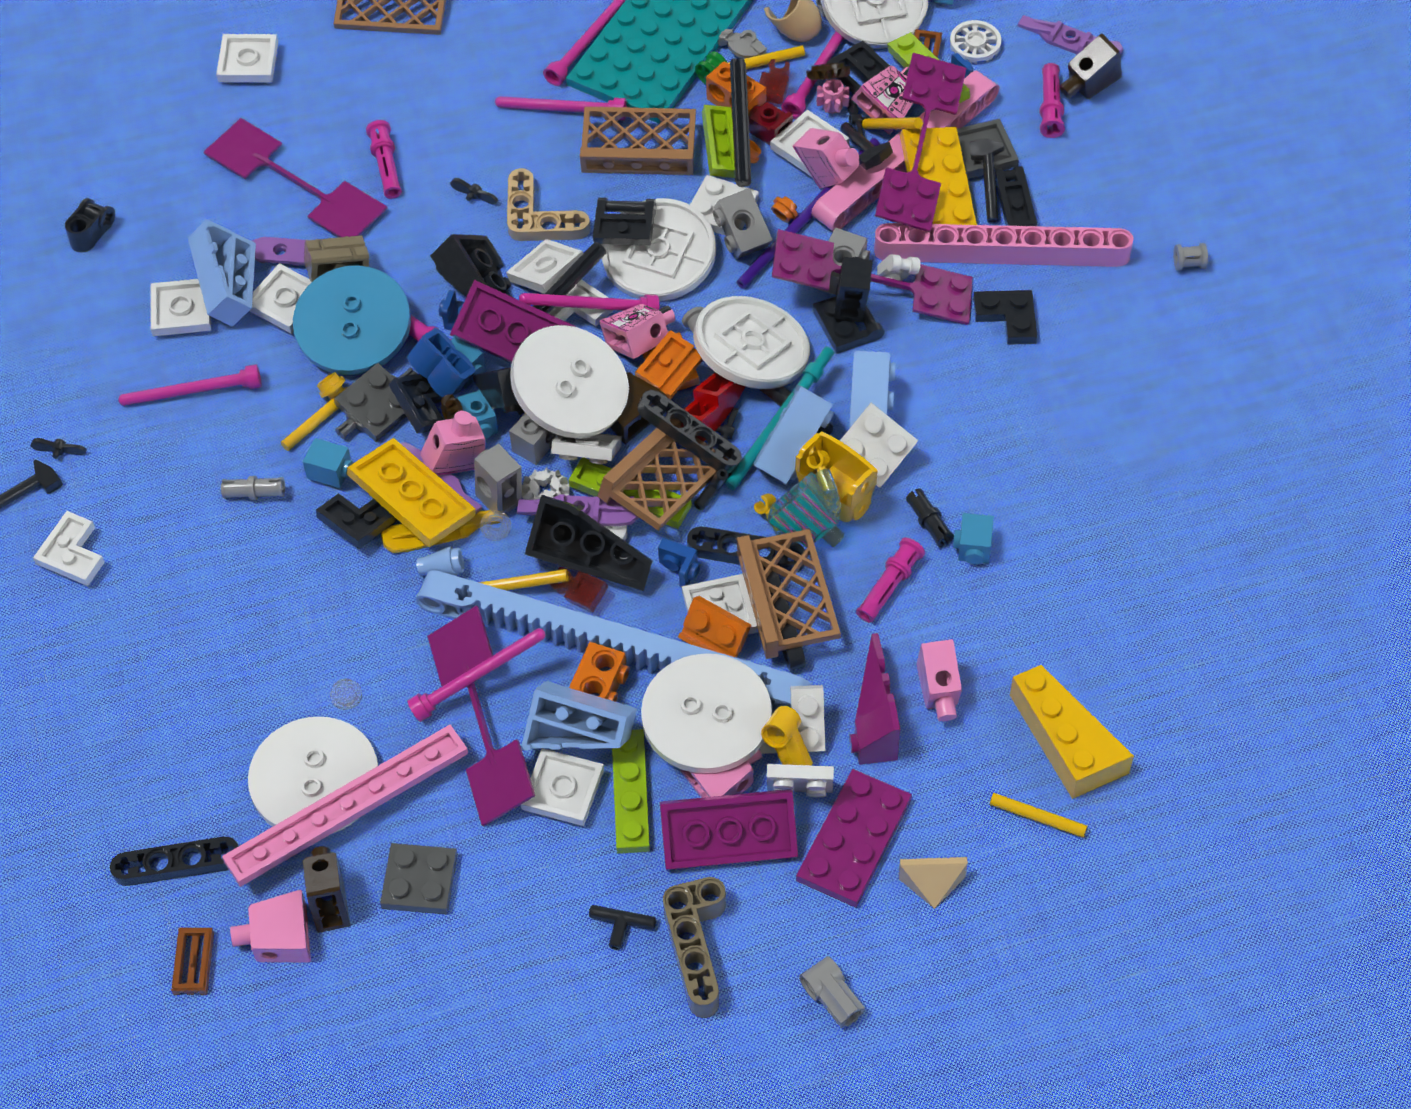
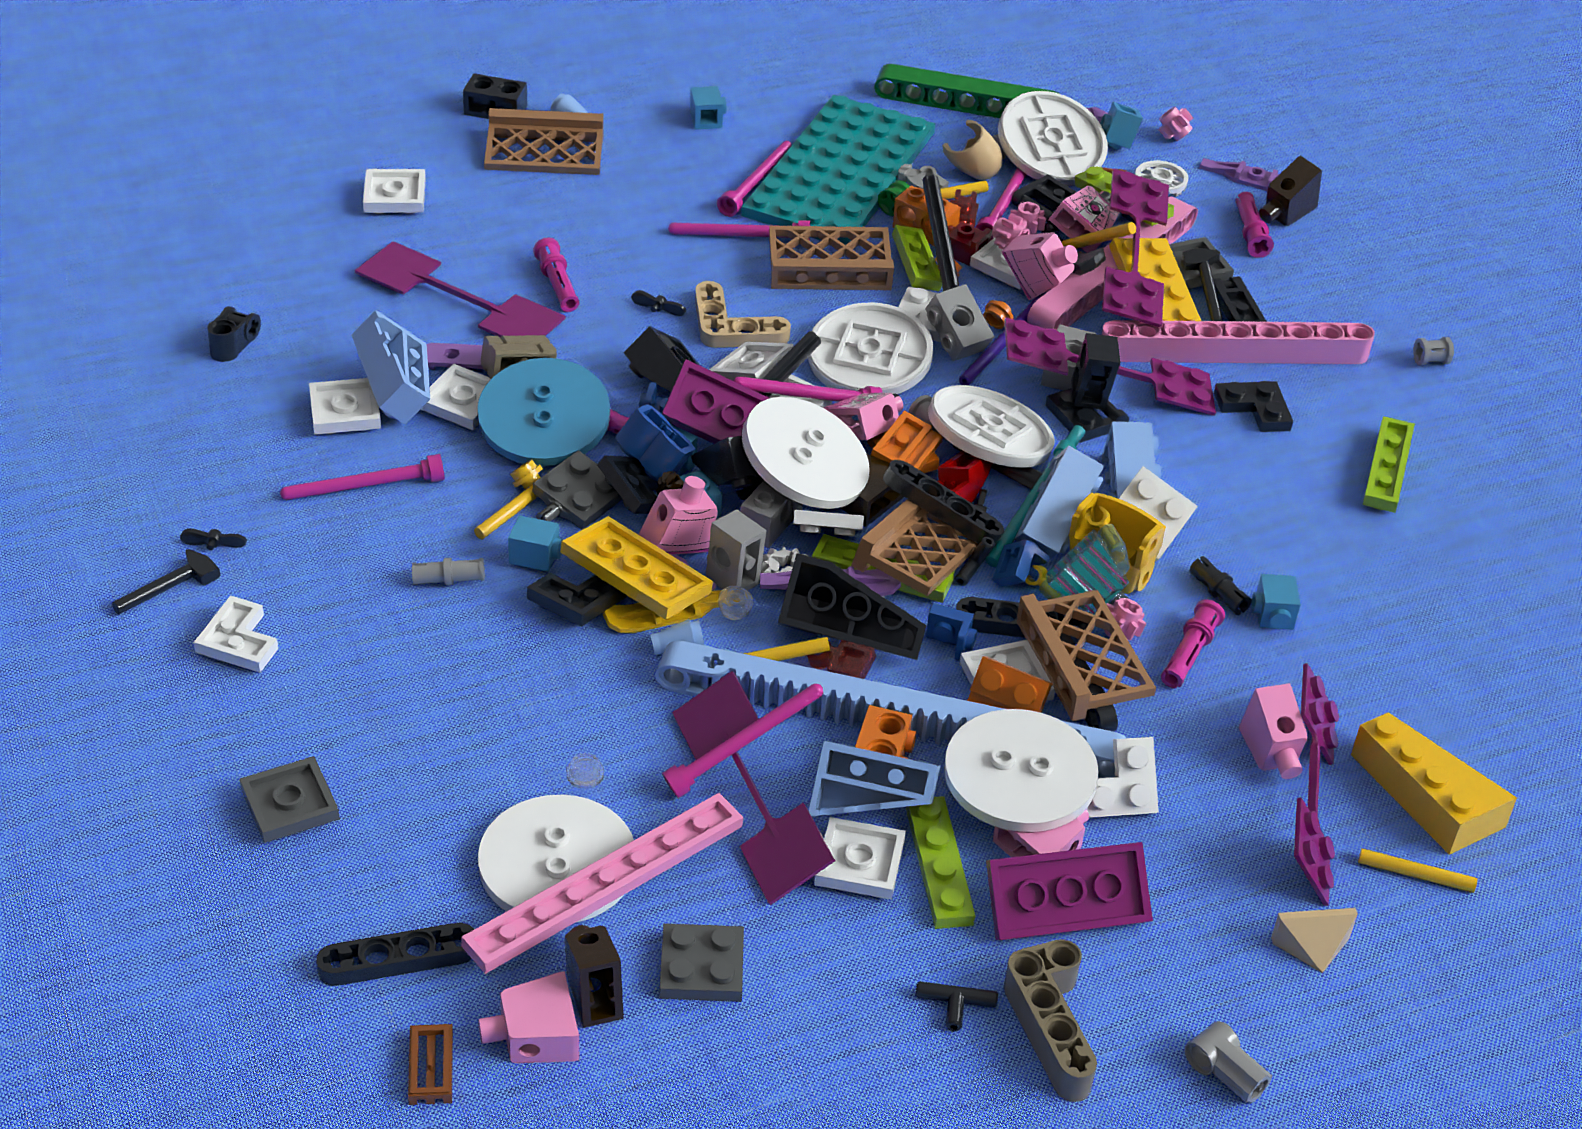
camera: 10 degrees left, 15 degrees down
(100, 713) = (289, 799): none -> dark grey plate
(624, 228) = (834, 320): black plate -> none
(747, 489) = (1016, 562): none -> blue bracket
(783, 735) = (1121, 796): yellow piece -> none
(801, 778) = (1157, 829): white plate -> none
(807, 117) = (1008, 229): none -> bright pink gear
(828, 71) = (1021, 193): dark brown gear -> none
(833, 554) = (1128, 616): none -> bright pink gear
(853, 838) = (1211, 901): magenta plate -> none
(876, 719) = (1215, 767): magenta wedge -> none
(897, 267) = (1137, 358): white plate -> none
(945, 790) = (1311, 847): none -> magenta hinge
(1115, 387) = (1388, 464): none -> lime plate

